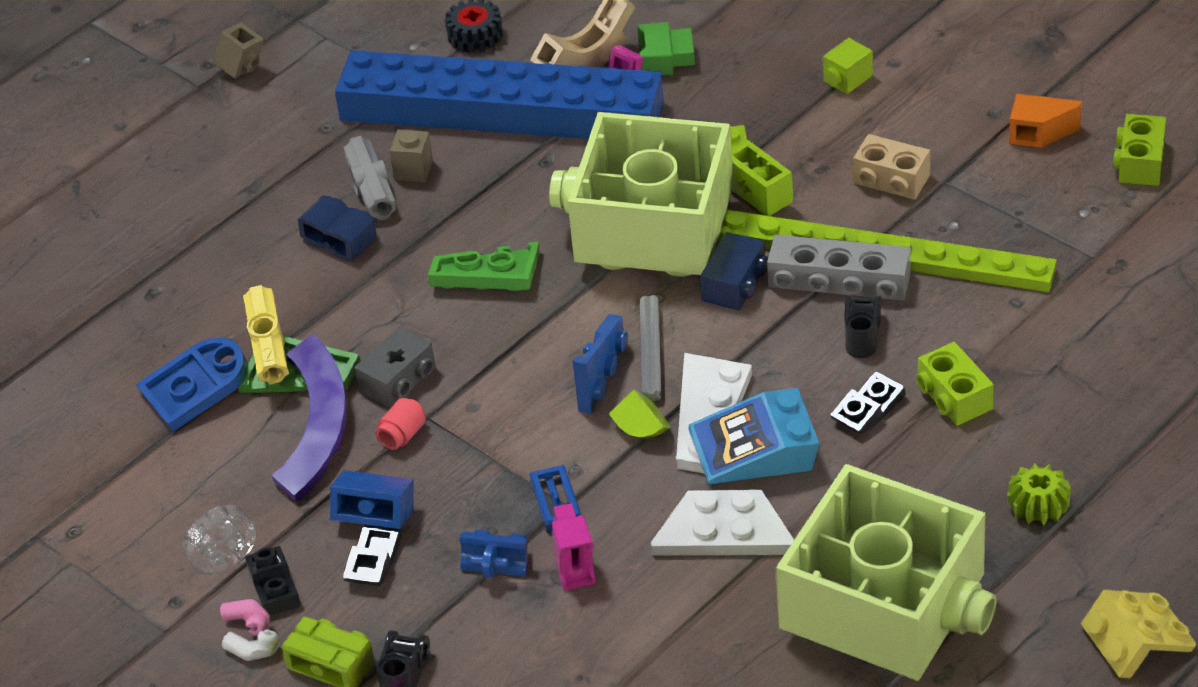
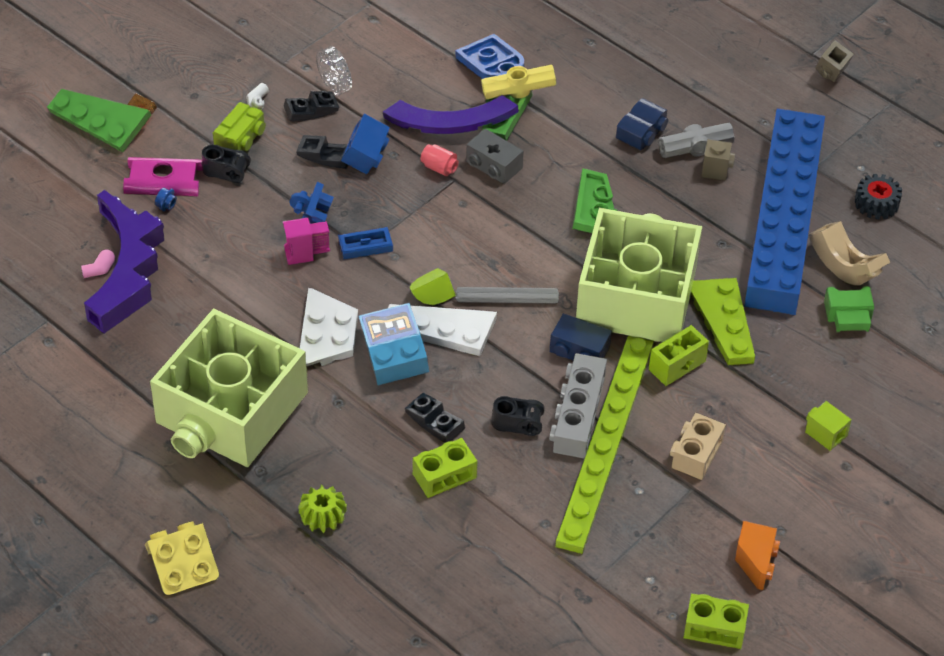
camera: 85 degrees right, 5 degrees up
(249, 611) = (285, 92): bright pink arm -> none
(598, 362) = (476, 257): blue wing -> none
(625, 59) = (824, 283): dark pink tile -> none

